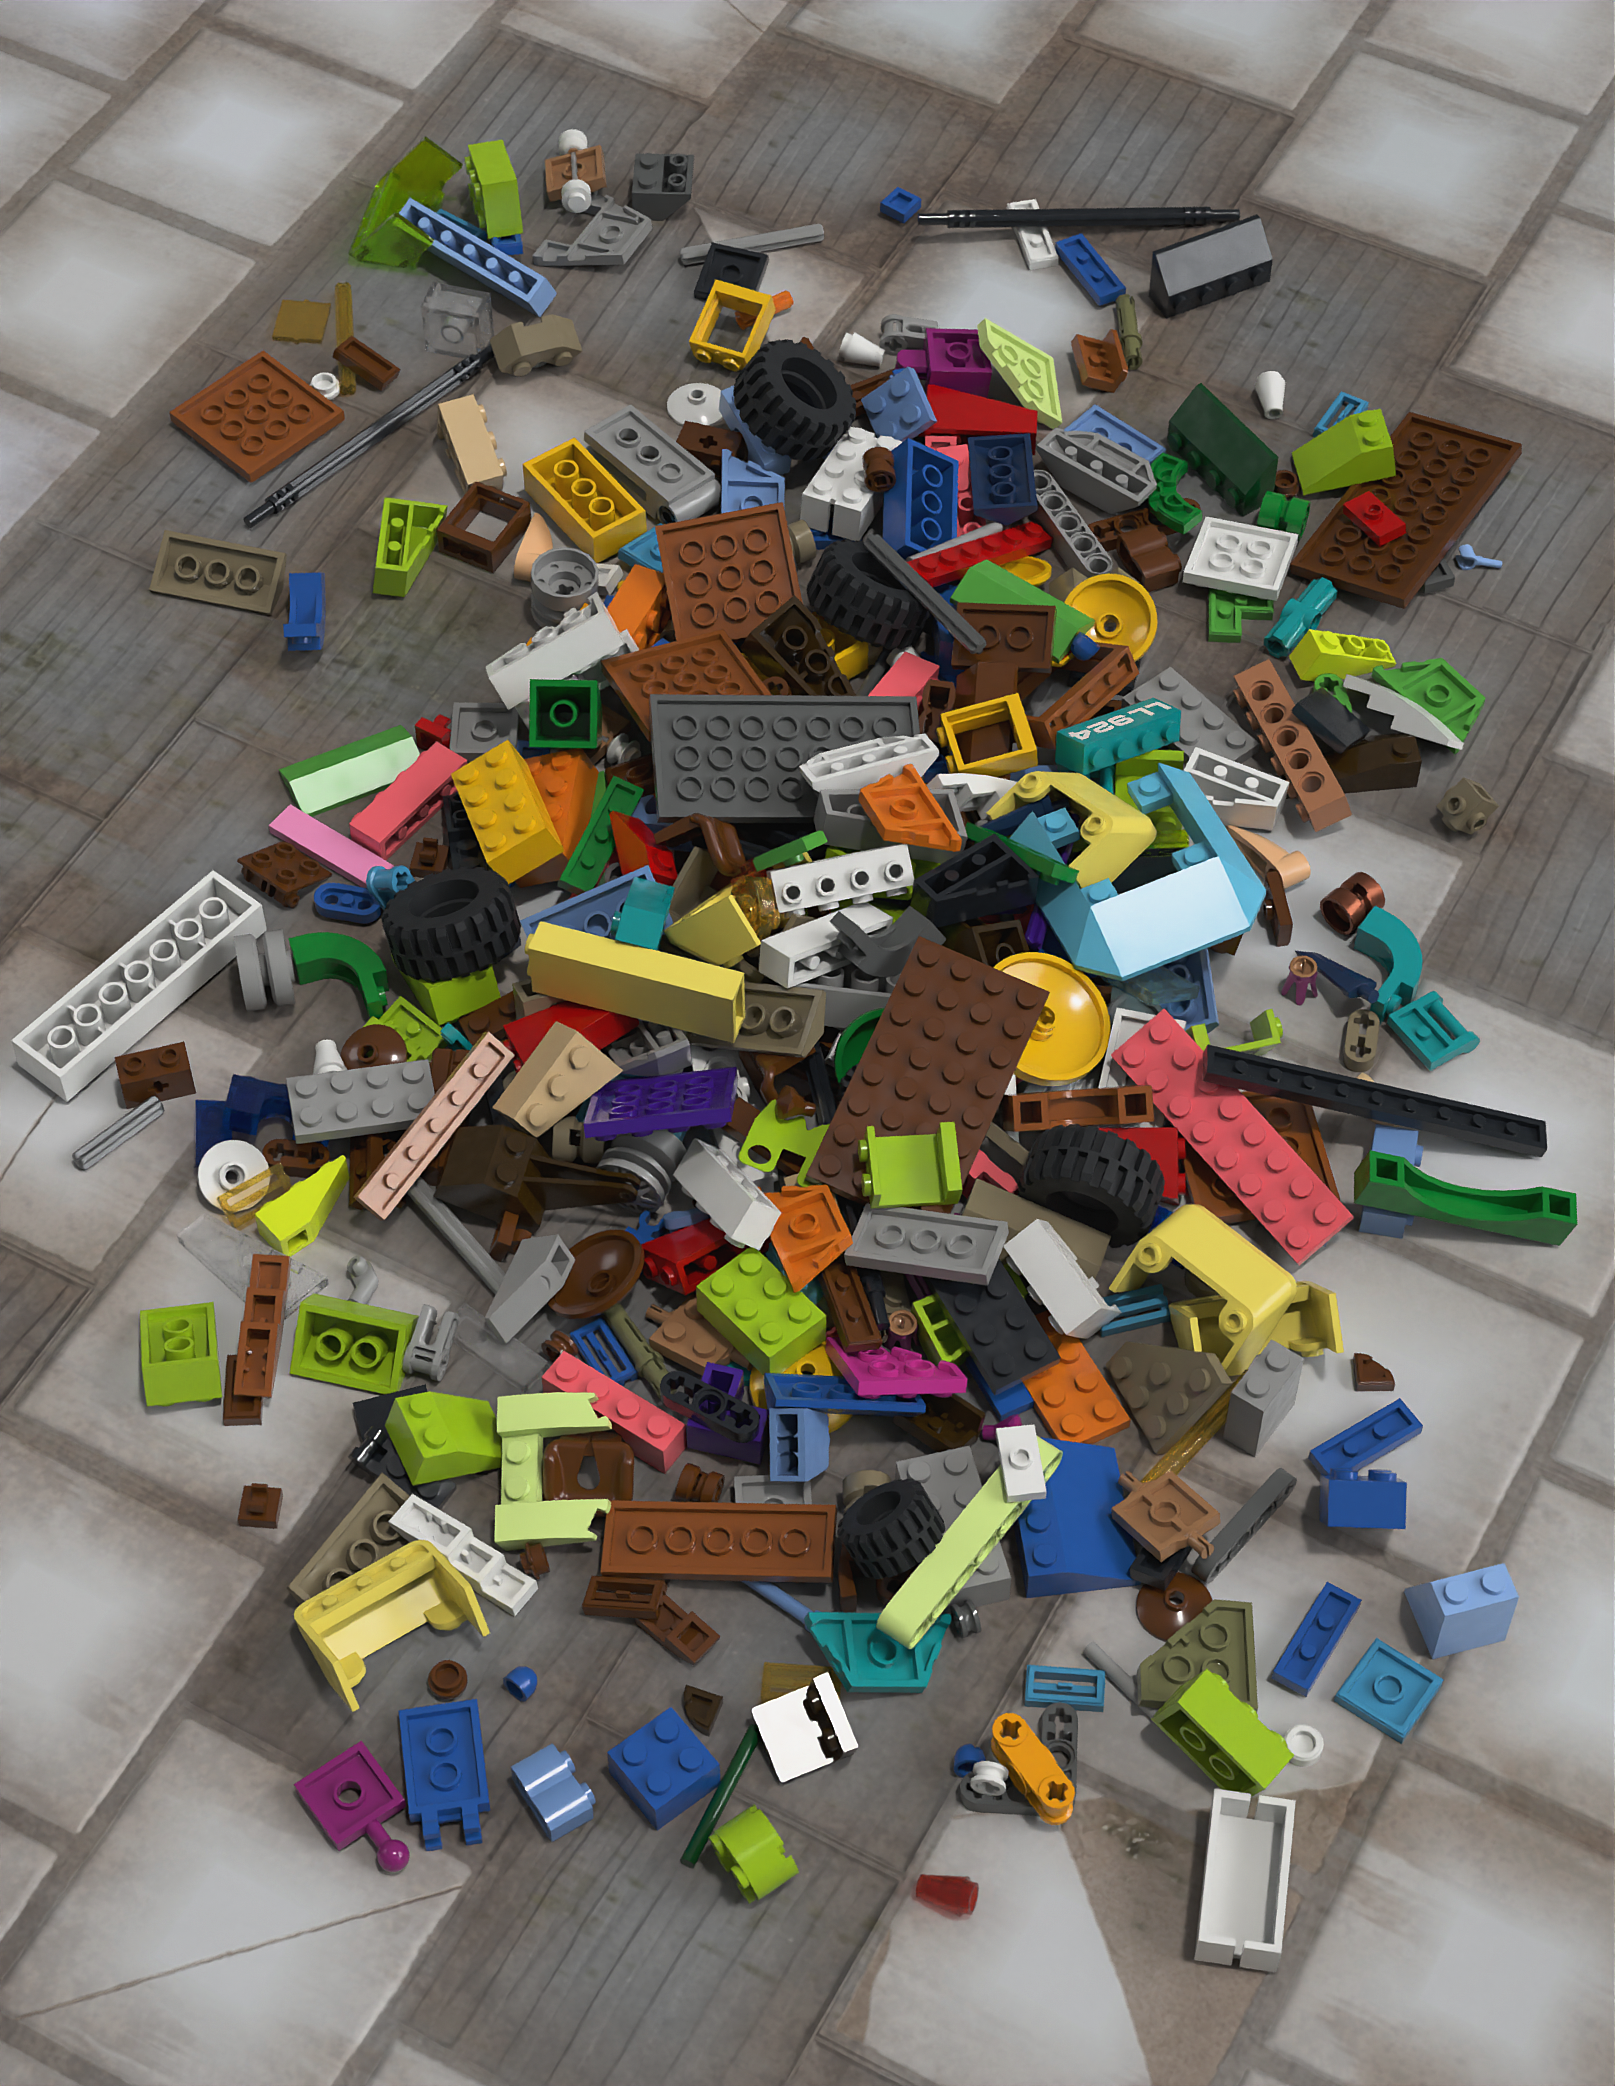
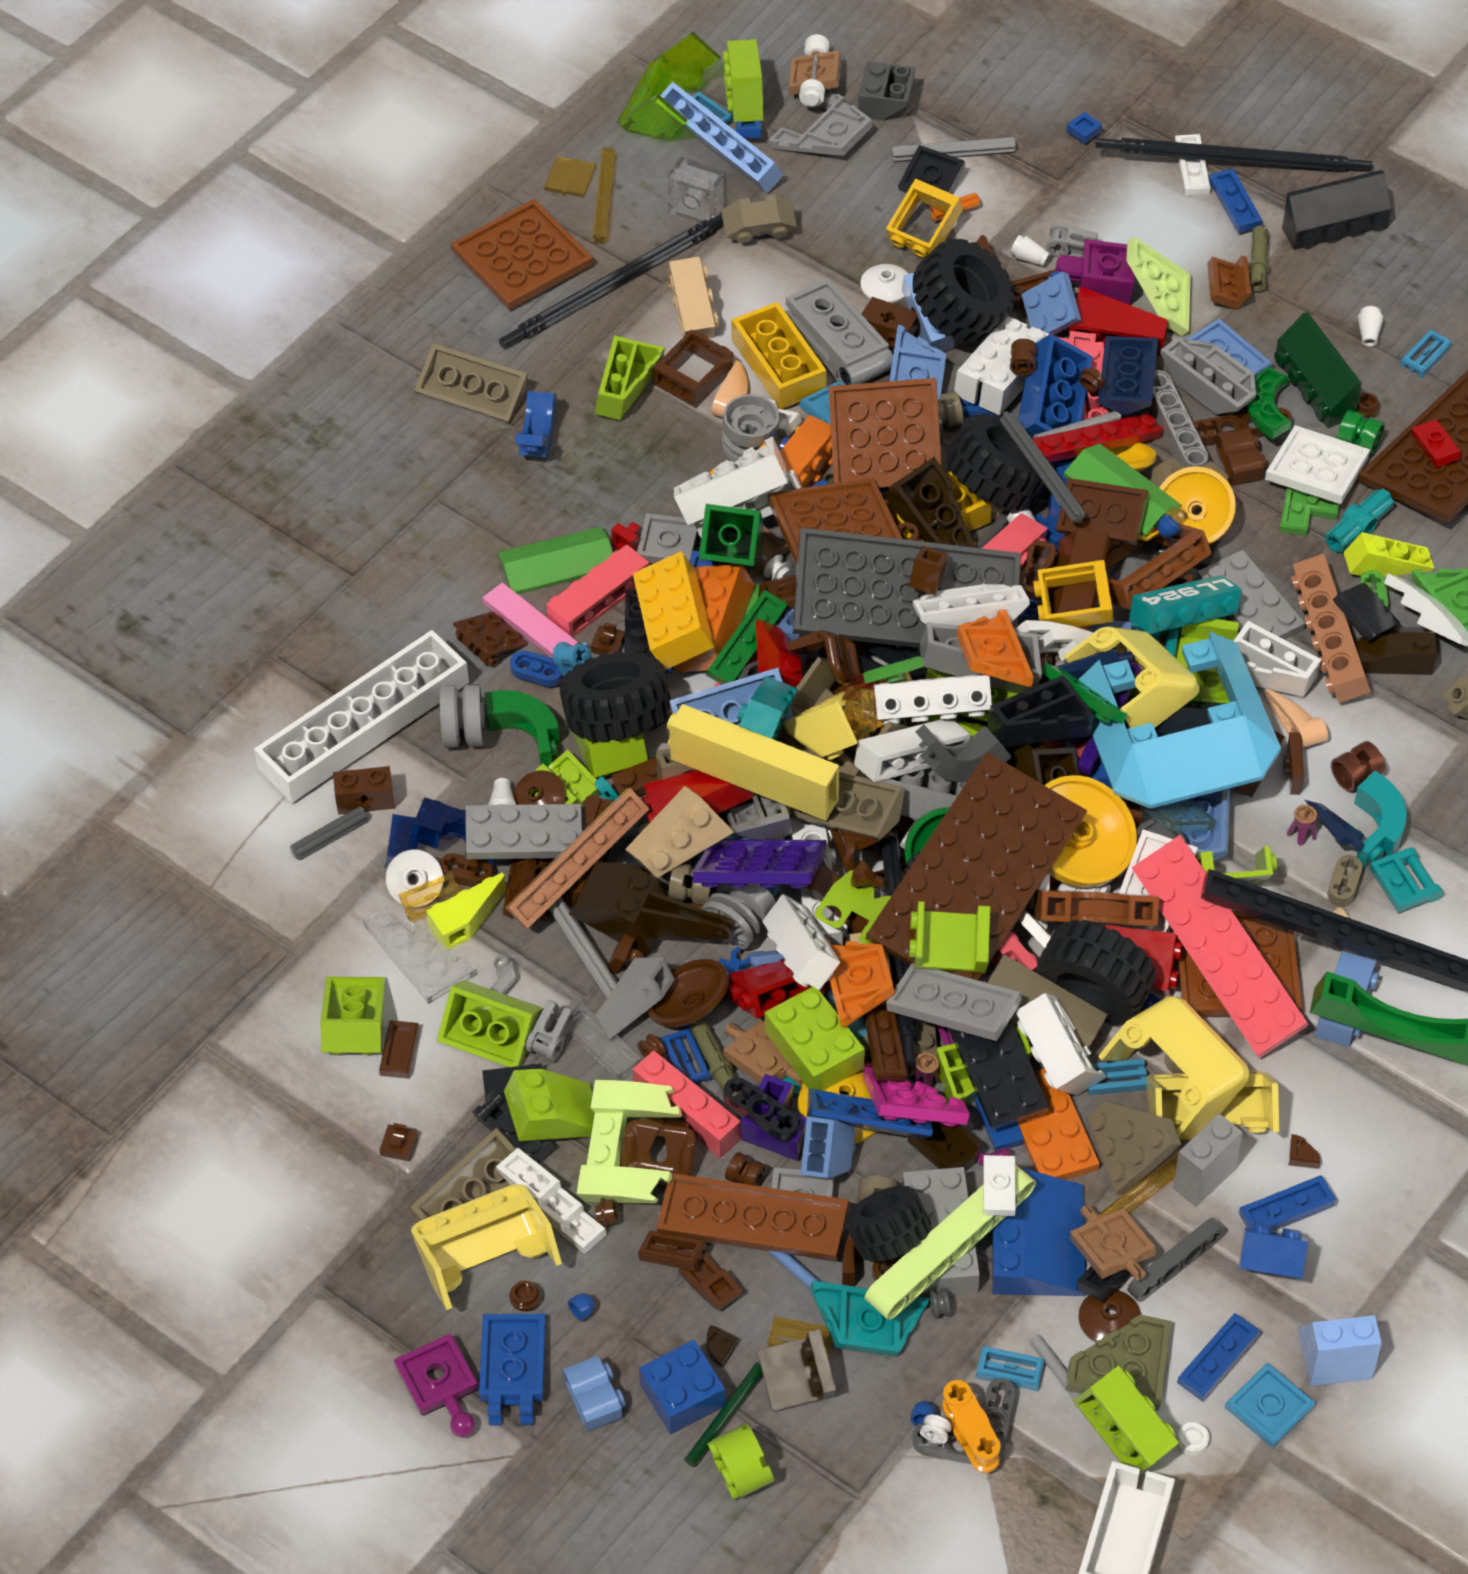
camera: 10 degrees right, 0 degrees up
(262, 1326) = (420, 1000): dark orange slope -> none
(326, 385) = (581, 233): white plate -> none
(366, 363) = (617, 218): reddish brown tile -> none
(811, 728) = (928, 570): none -> reddish brown brick
(949, 1892) = (891, 1513): clear red cone -> none
(962, 487) = (1091, 379): none -> reddish brown plate
(1346, 454) = (1422, 385): lime slope -> none

